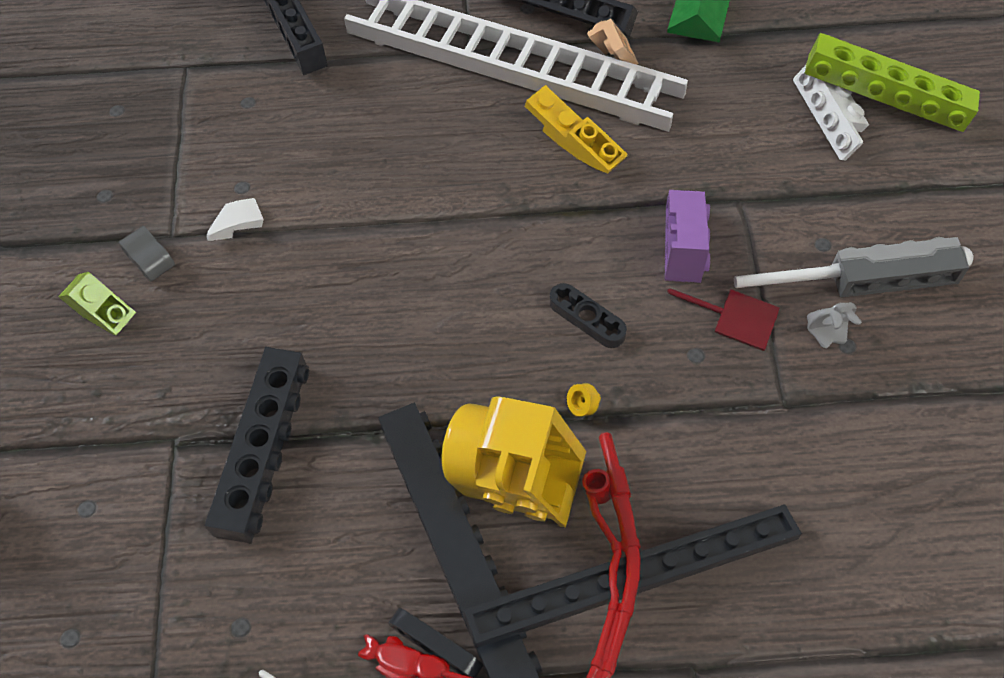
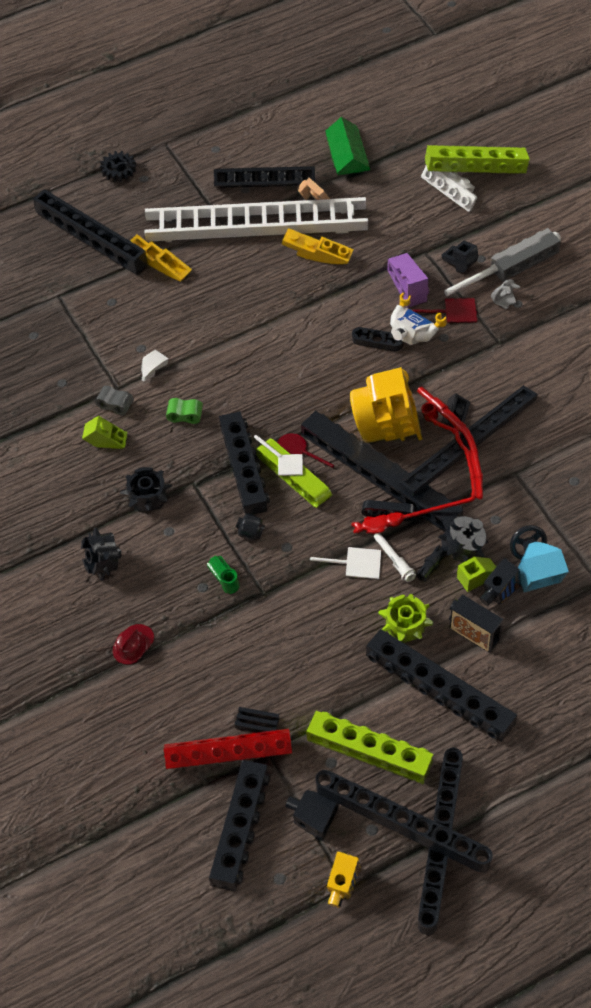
camera: 25 degrees left, 5 degrees down
(87, 424) = (146, 489): none -> black brick
(106, 632) = (223, 574): none -> green piece
(197, 567) = (250, 527): none -> black head
(231, 313) = (184, 410): none -> bright green axle
(318, 481) = (287, 464): none -> white piece
(324, 498) = (306, 485): none -> lime beam
(347, 64) = (163, 259): none -> yellow slope
(357, 444) = (296, 444): none -> dark red piece
(649, 319) = (411, 326): none -> white torso
(650, 499) = (459, 407): none -> black slope
(790, 229) = (461, 256): none -> black brick

